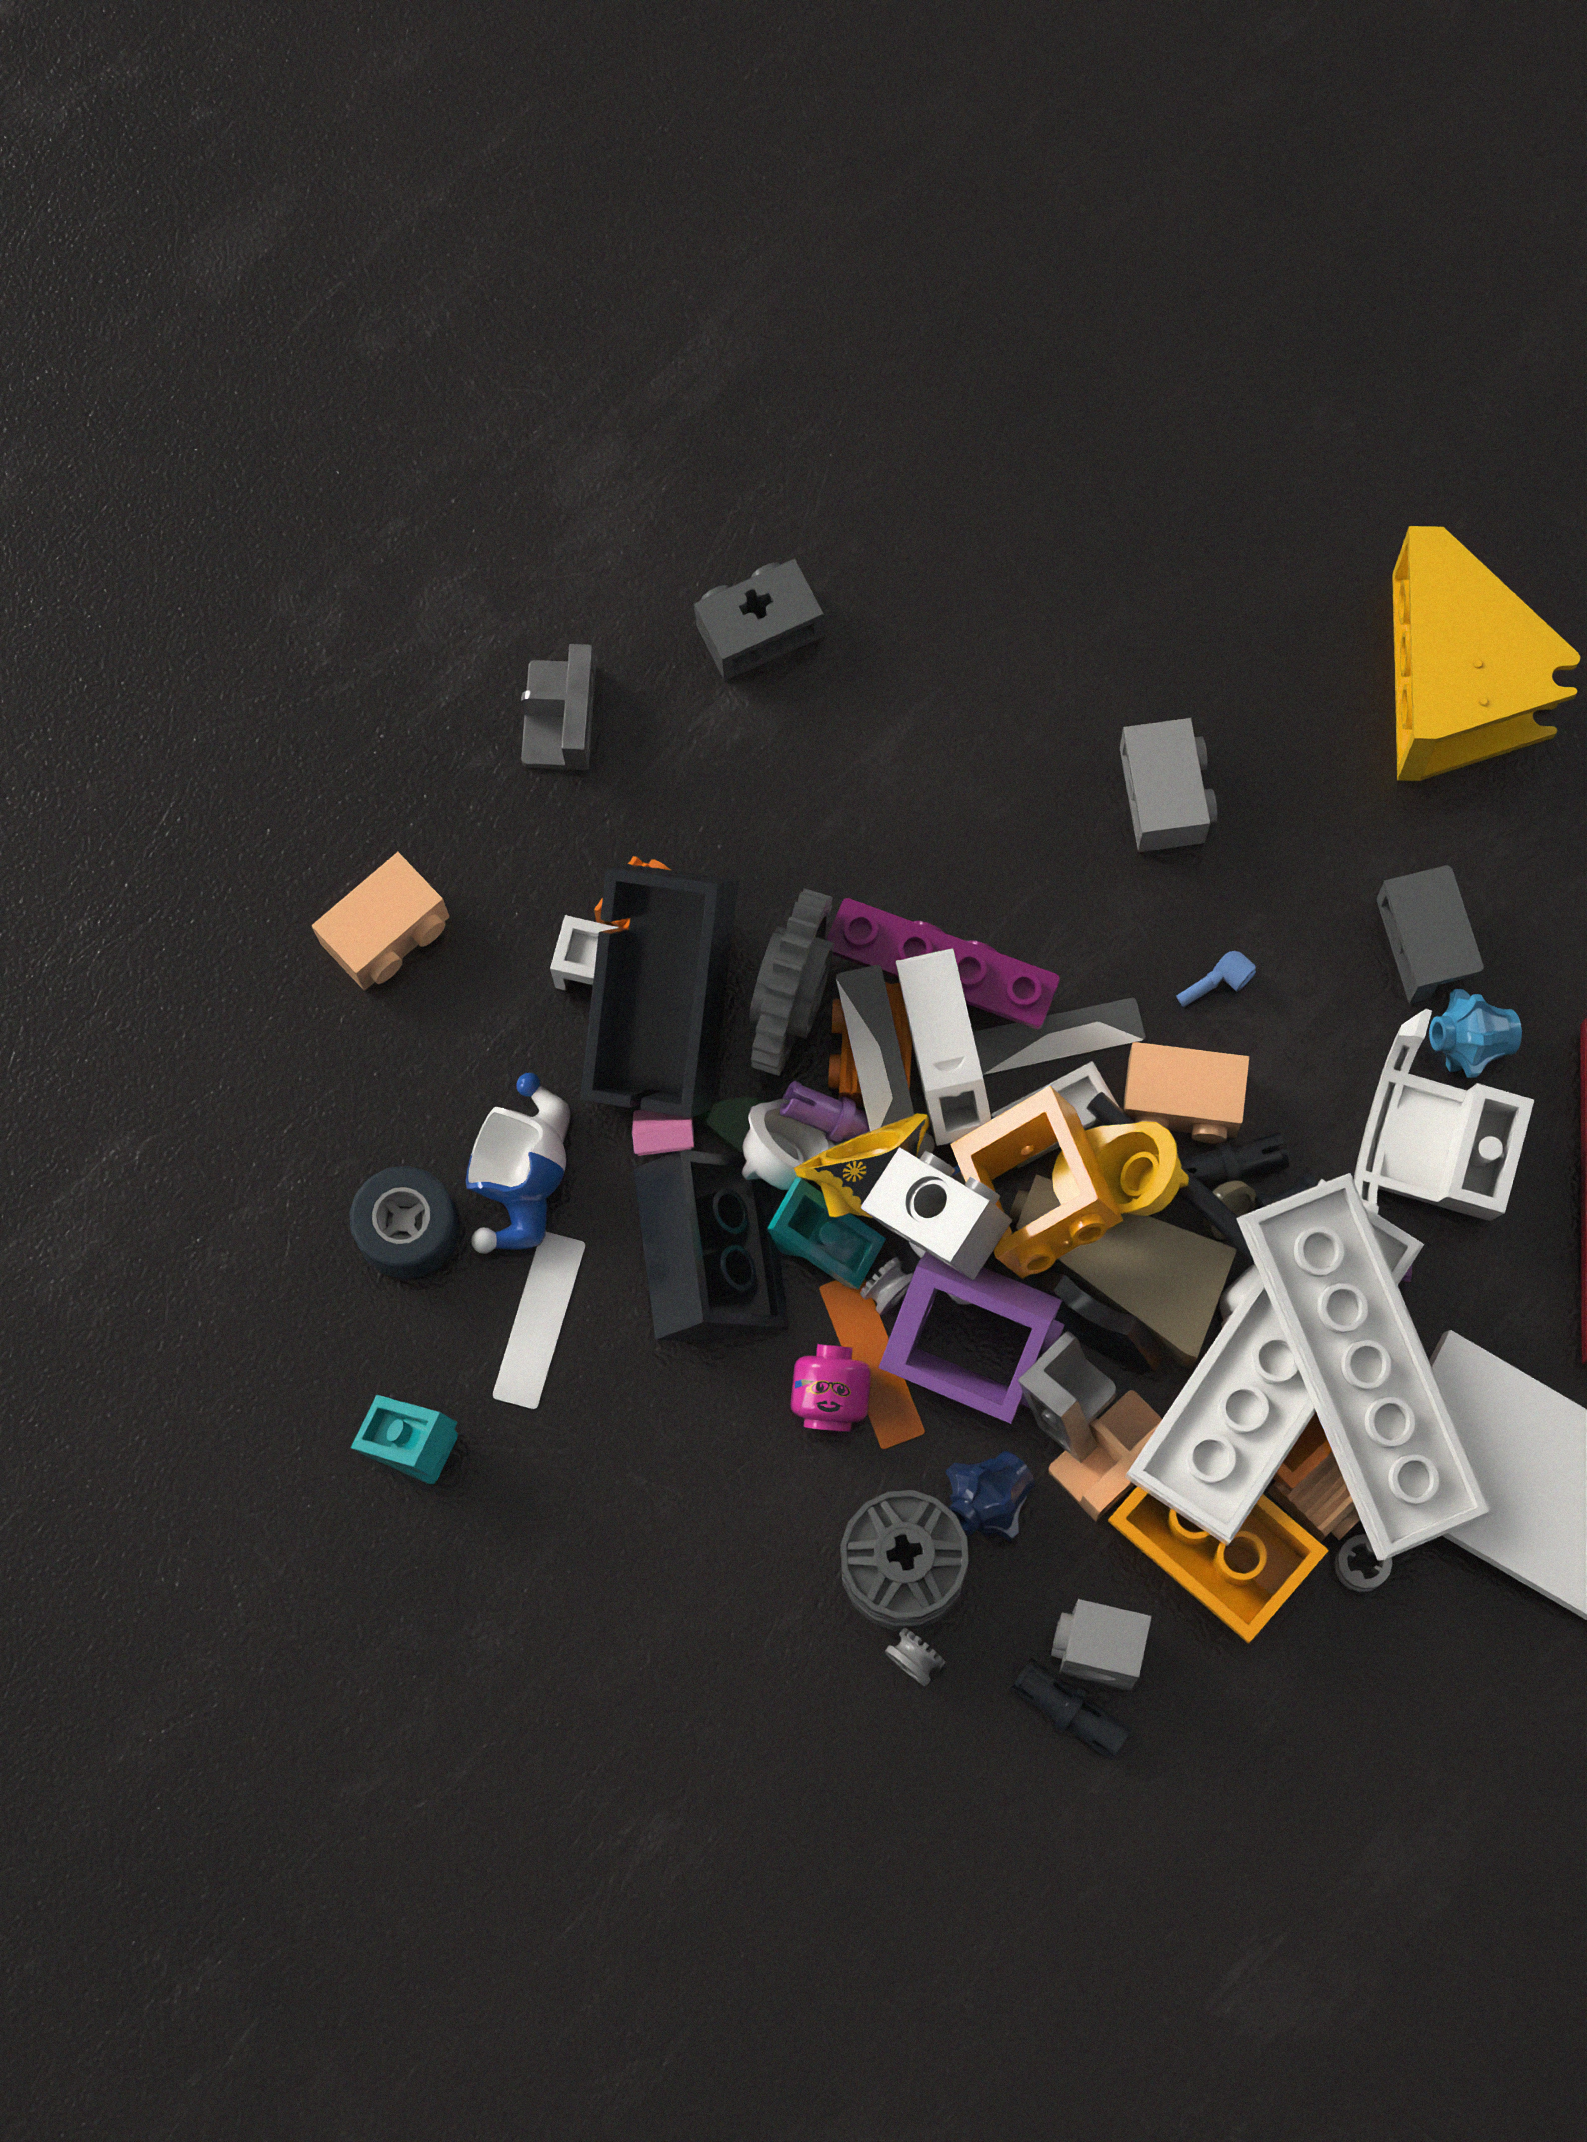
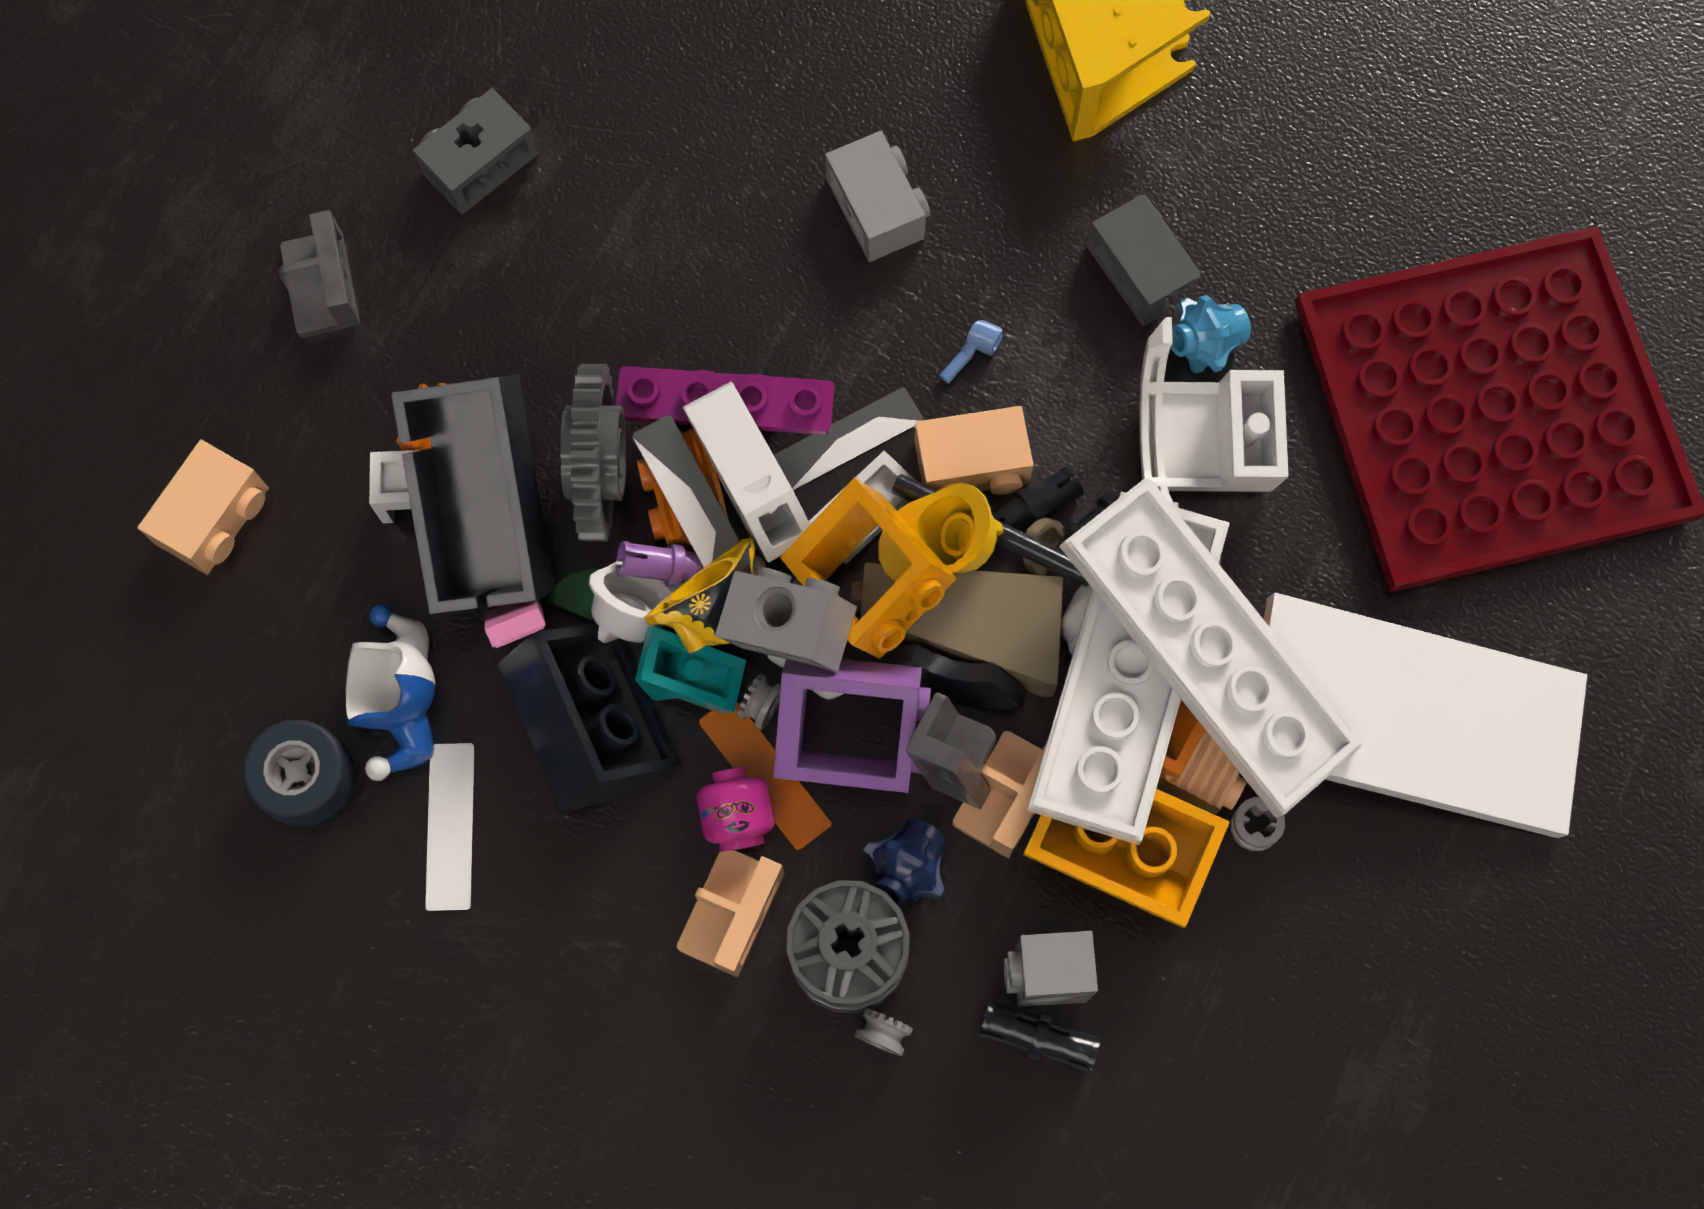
camera: 20 degrees left, 0 degrees up
(407, 1438) = (355, 972): teal slope -> none
(797, 1489) = (730, 910): none -> light nougat panel

